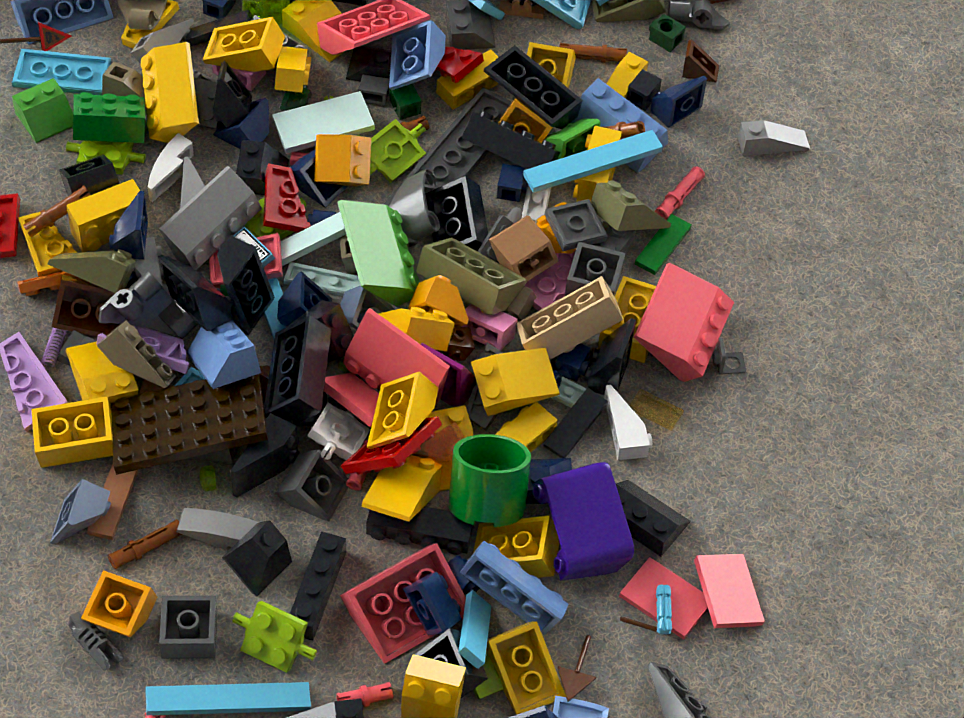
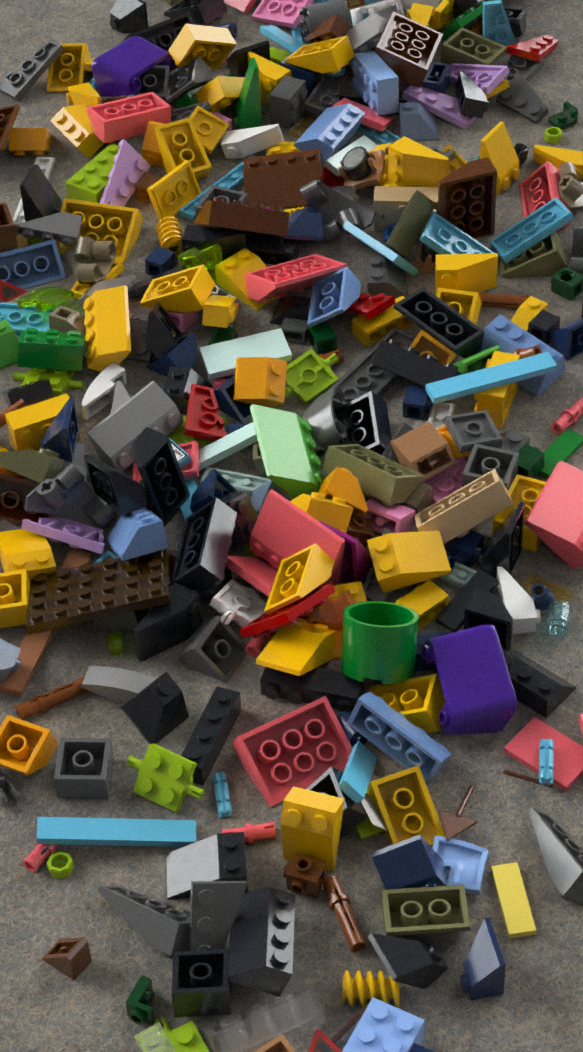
camera: 10 degrees right, 10 degrees down
(94, 48) = (45, 298): none -> clear neon green slope
(130, 352) = (50, 532): dark tan slope -> none
(333, 652) = (222, 795): none -> medium azure axle
(433, 603) = (318, 747): dark blue slope -> none
(492, 674) = (372, 812): none -> white sticker
(556, 22) = (466, 271): none -> yellow slope
(600, 444) = (488, 609): none -> black slope
(623, 209) = (520, 419): olive slope -> none
(636, 258) = (530, 461): none -> dark green brick
(656, 425) = (542, 597): none -> dark blue cone
(671, 443) = (559, 618): none -> clear light blue brick

